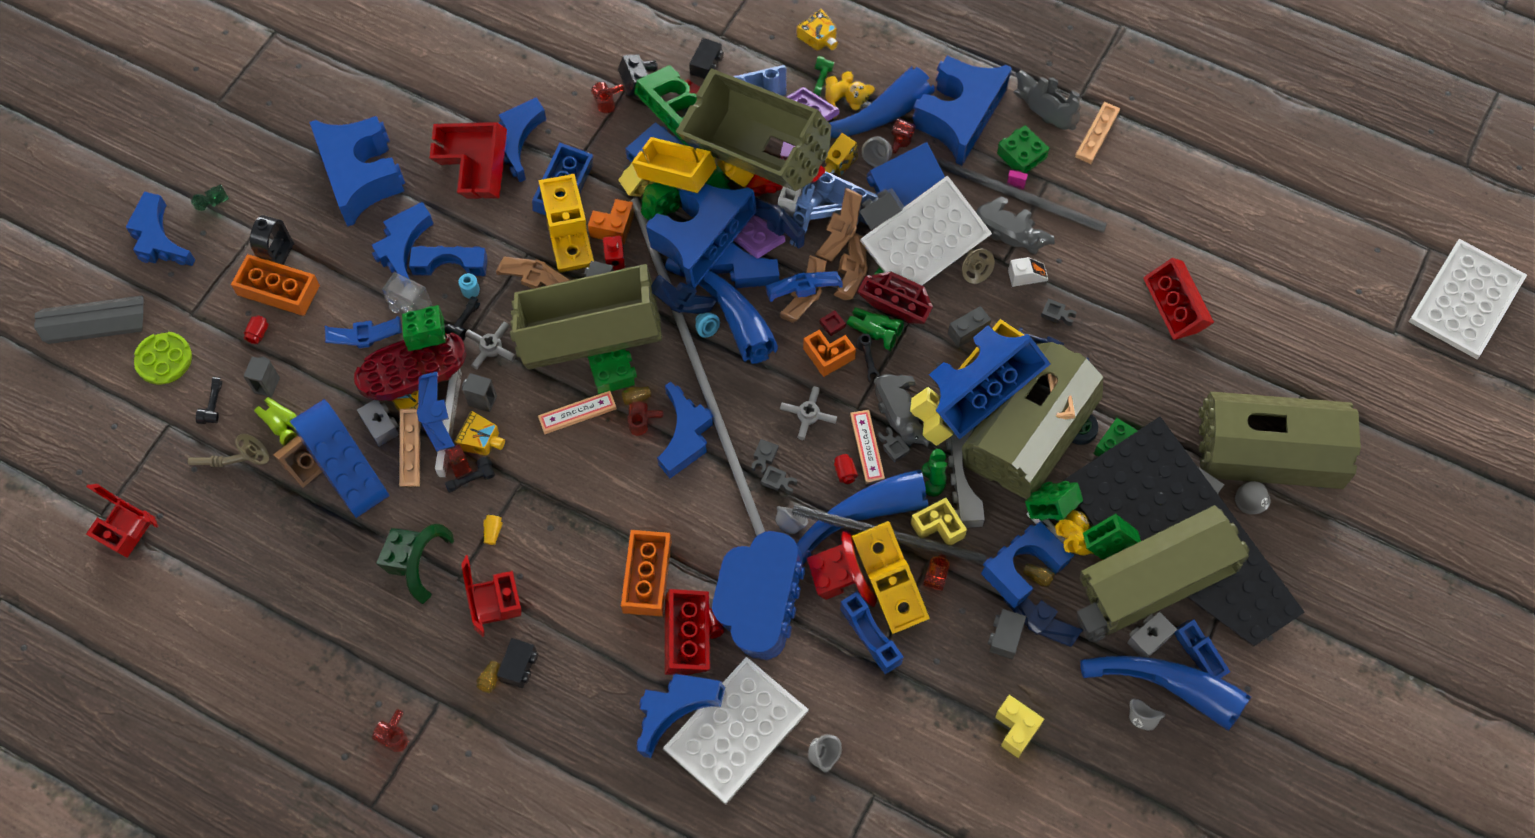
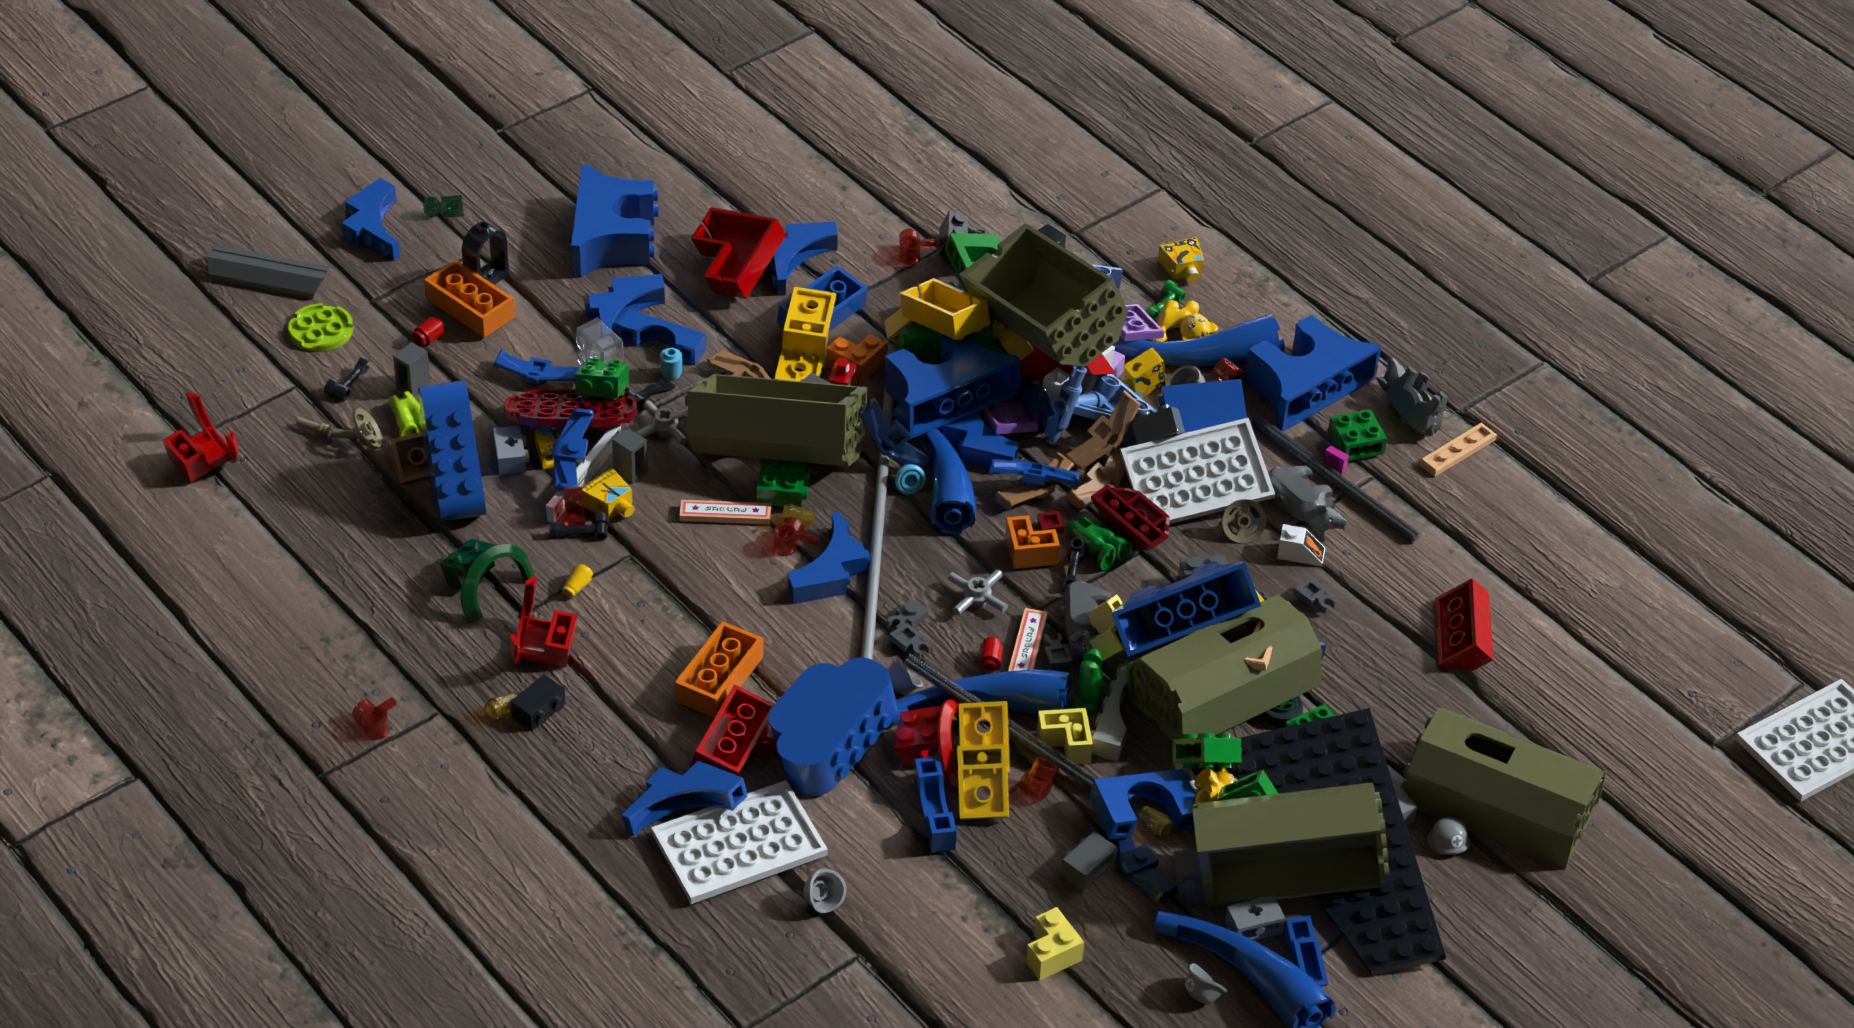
camera: 20 degrees right, 20 degrees down
(409, 449) = (529, 481): light nougat tile -> none

